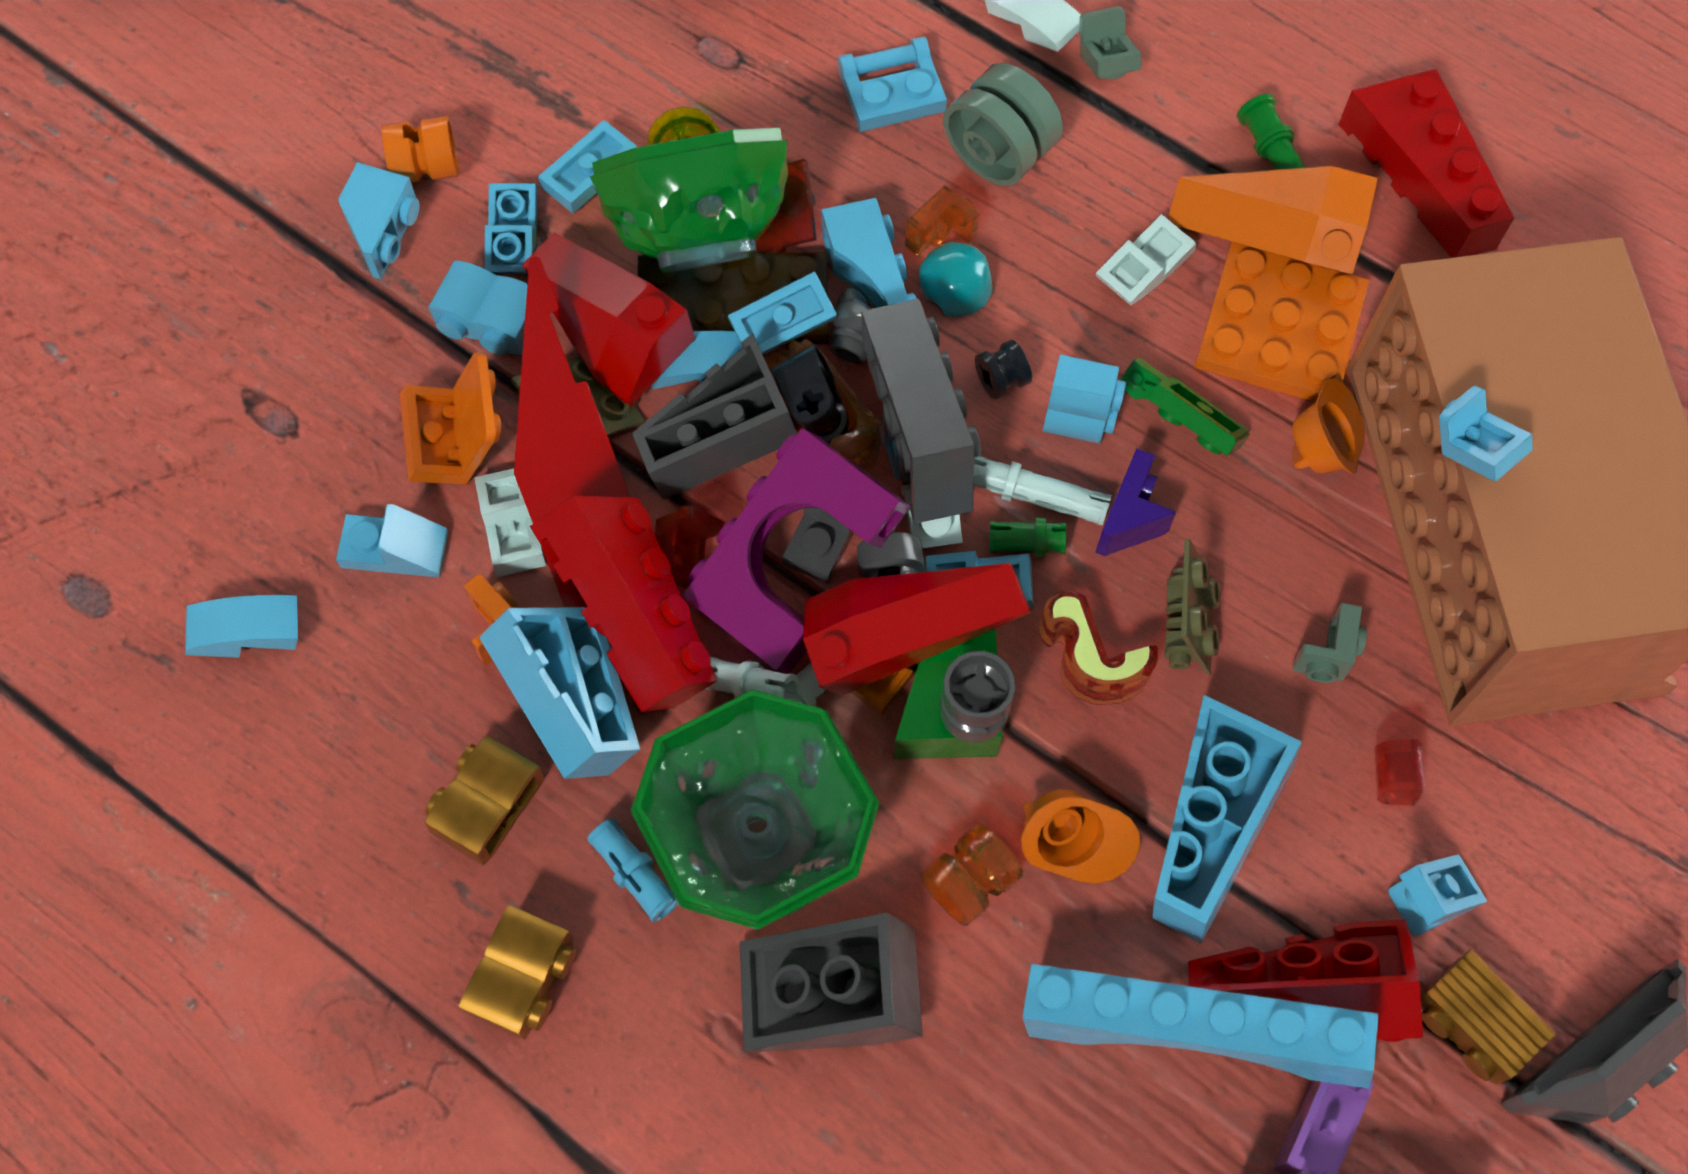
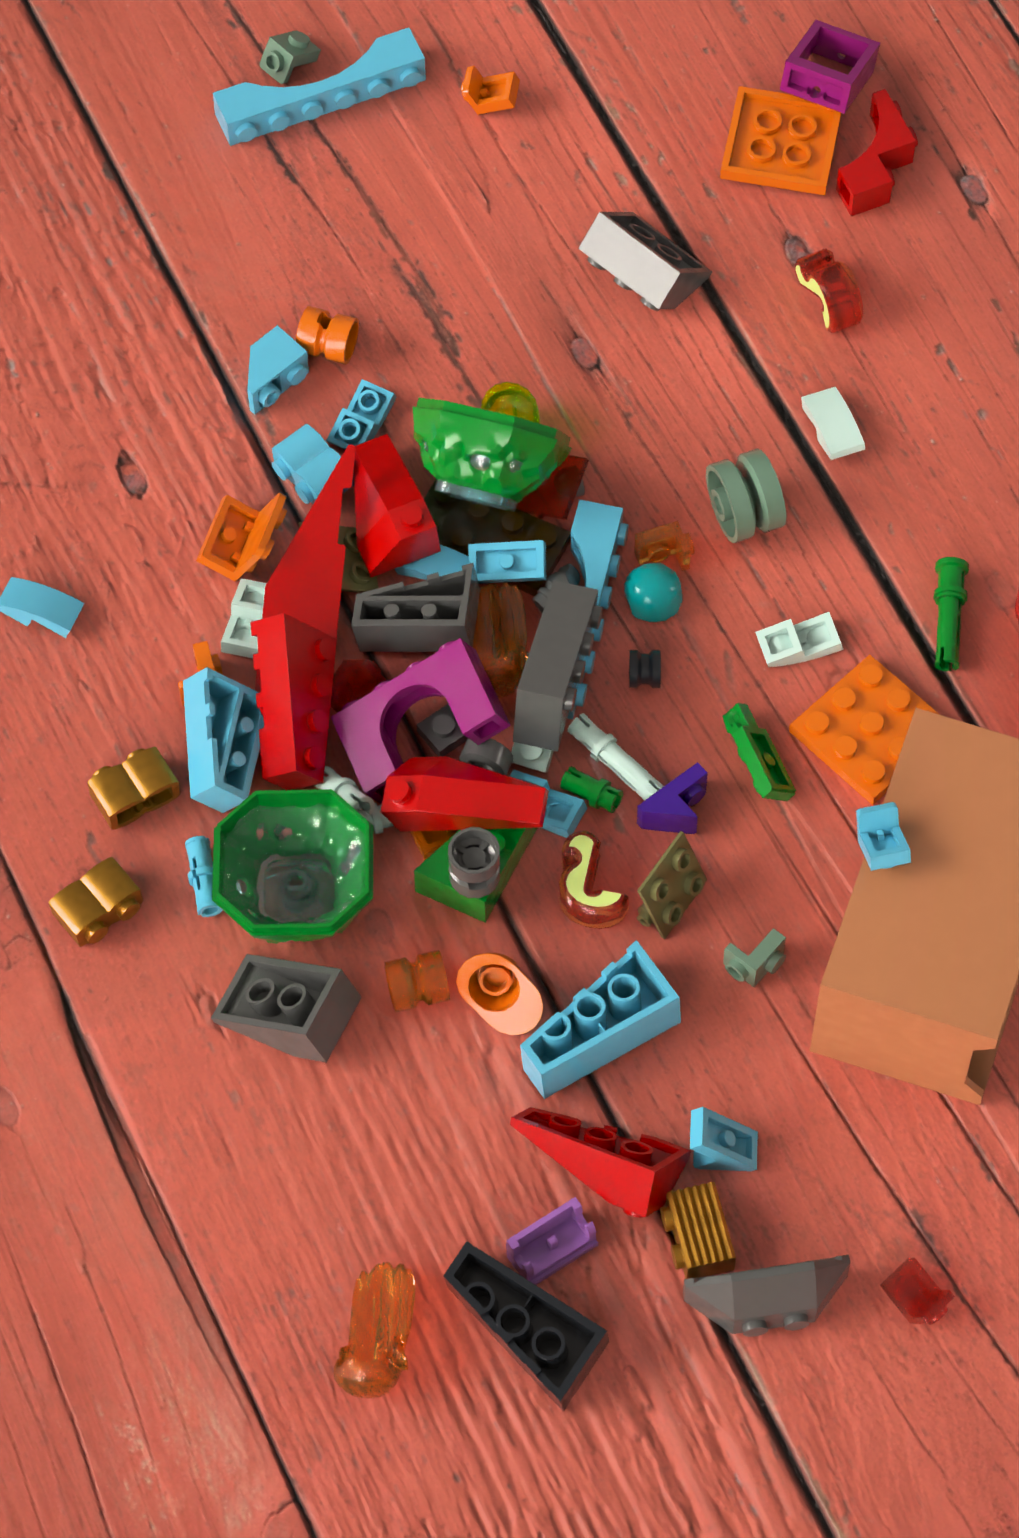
camera: 30 degrees right, 5 degrees down
(393, 544) = (165, 598): medium azure slope -> none
(570, 175) = (452, 387): medium azure plate -> none
(812, 394) = (494, 622): black piece -> none
(893, 96) = (693, 441): medium azure plate -> none
(1084, 399) = (680, 712): medium azure brick -> none
(1106, 45) = (870, 470): sand green bracket -> none
(1282, 1034) = (552, 1164): medium azure arch -> none
(1295, 213) = (920, 653): orange wedge -> none
(1329, 432) = (836, 812): orange piece -> none
(1399, 772) = (747, 1059): clear red brick -> none

